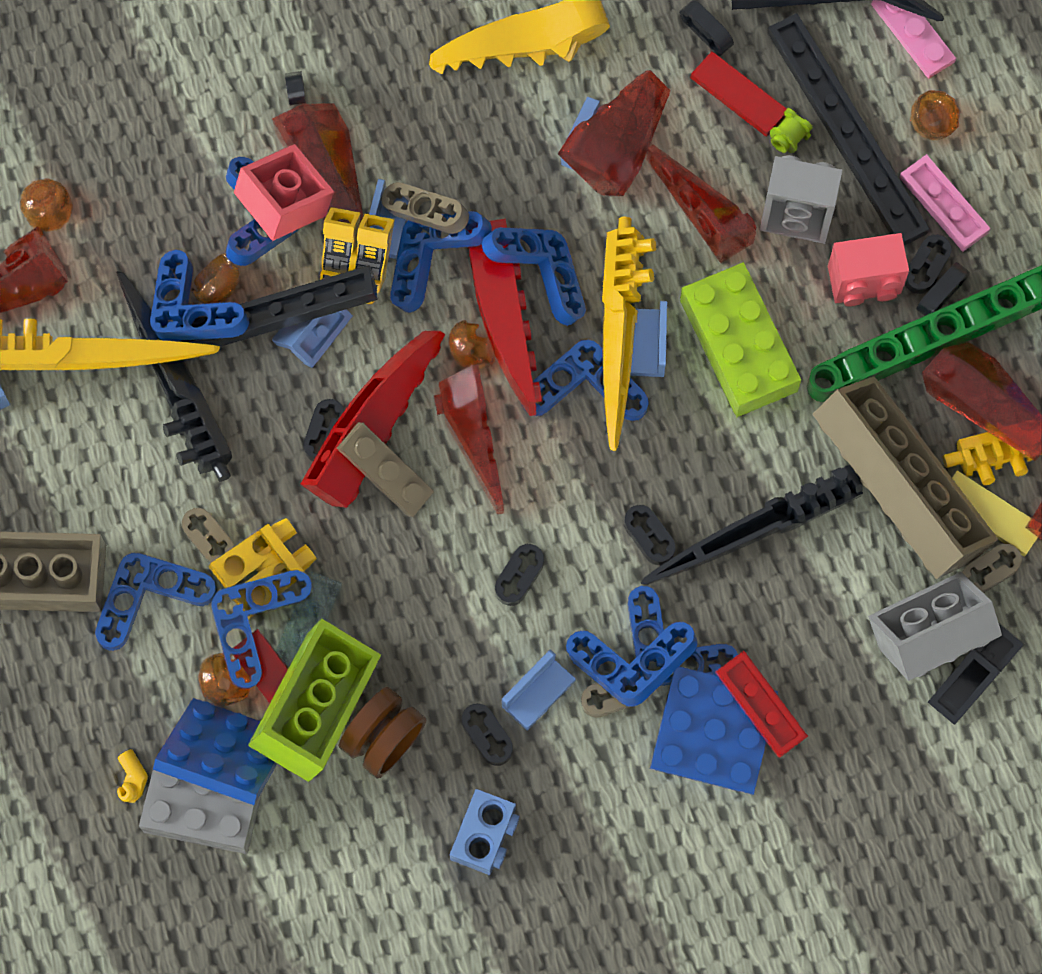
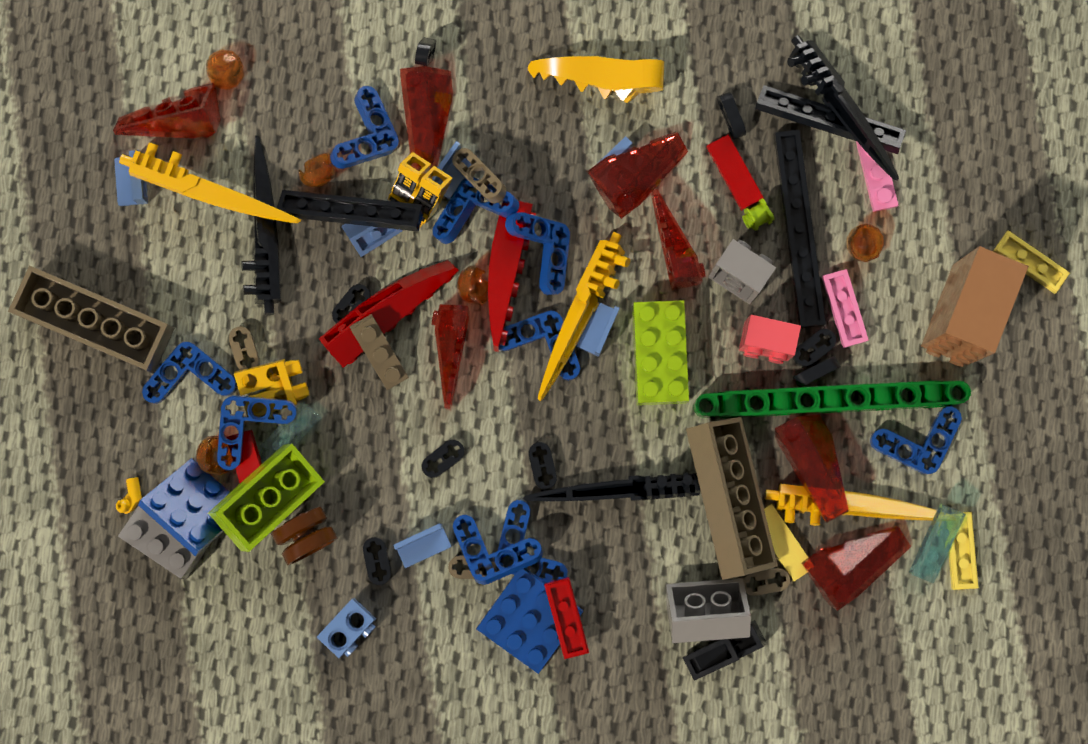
camera: 20 degrees right, 10 degrees up
(185, 314) = (284, 181): blue beam -> none
(283, 192) = (385, 126): coral brick -> none

